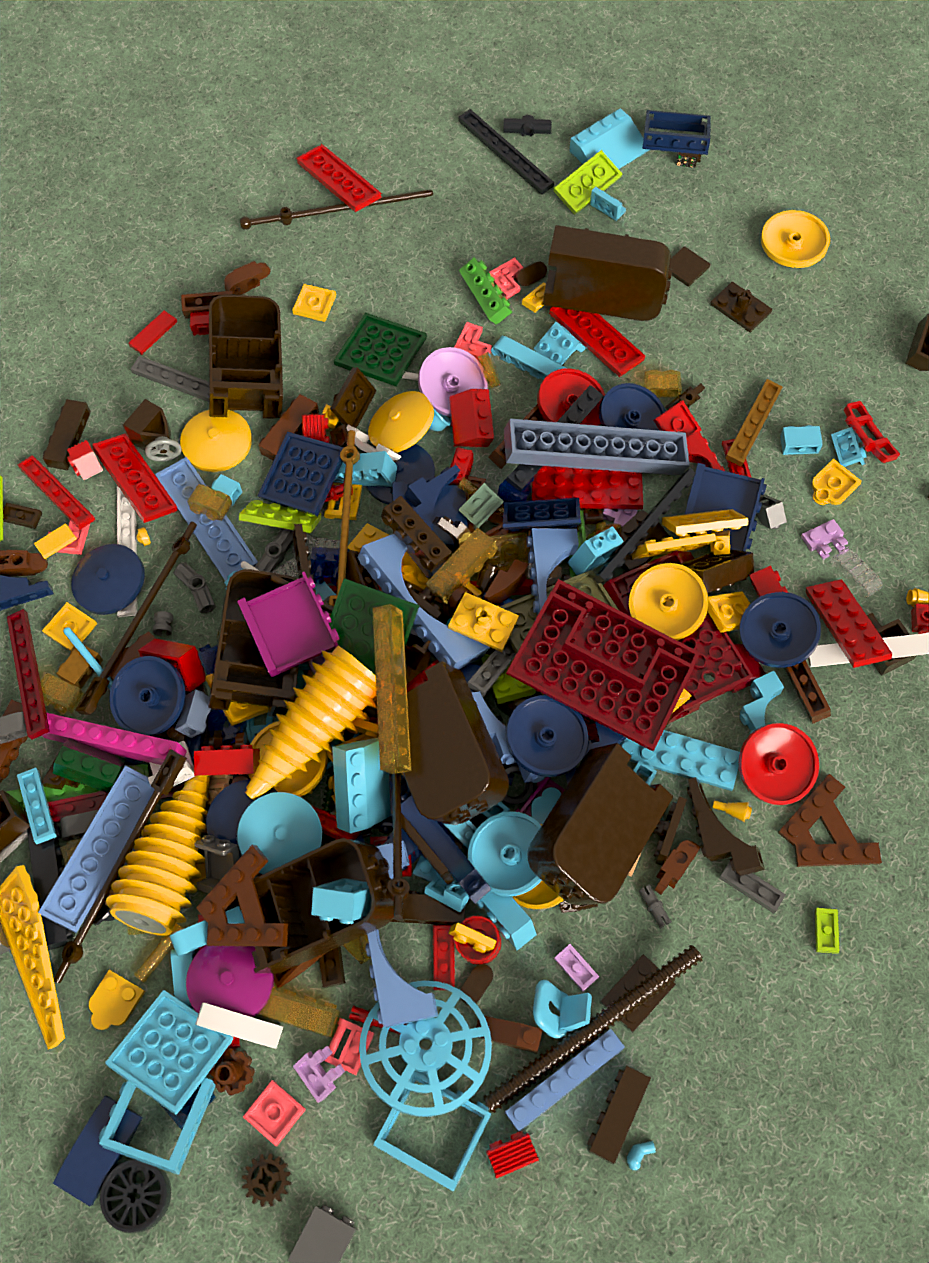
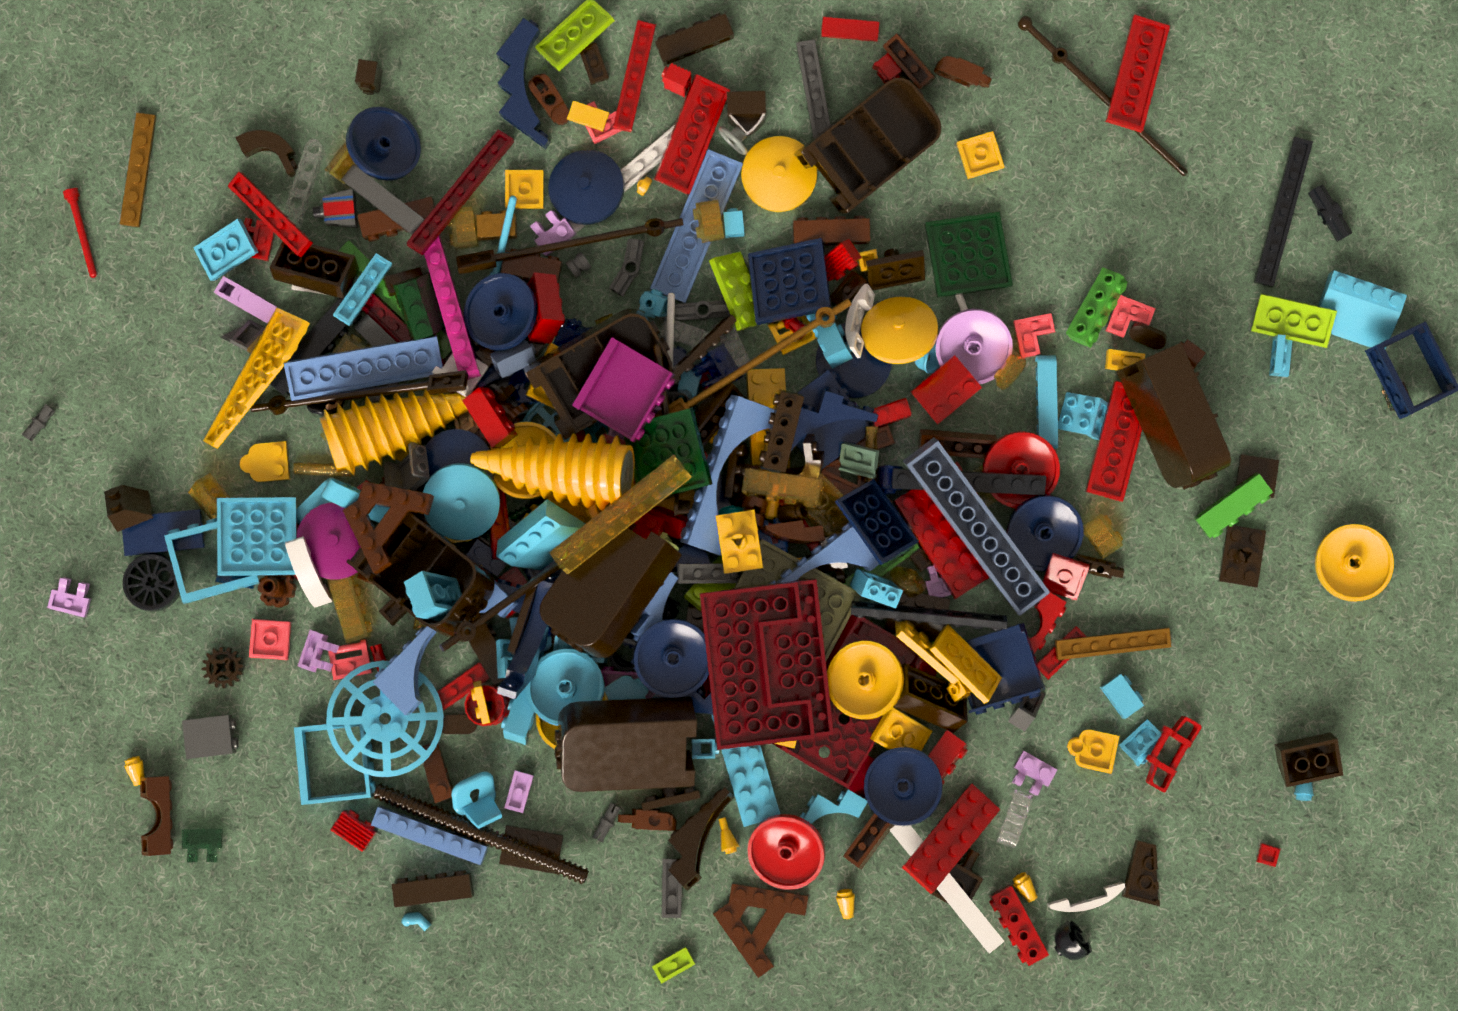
camera: 55 degrees right, 20 degrees up
(46, 1166) = (127, 506): none -> dark brown slope
(97, 1078) = (205, 493): none -> clear yellow brick
(123, 619) = (559, 232): none -> lavender plate
(699, 286) = (1233, 505): none -> bright green brick
(852, 745) = (845, 900): none -> yellow cone

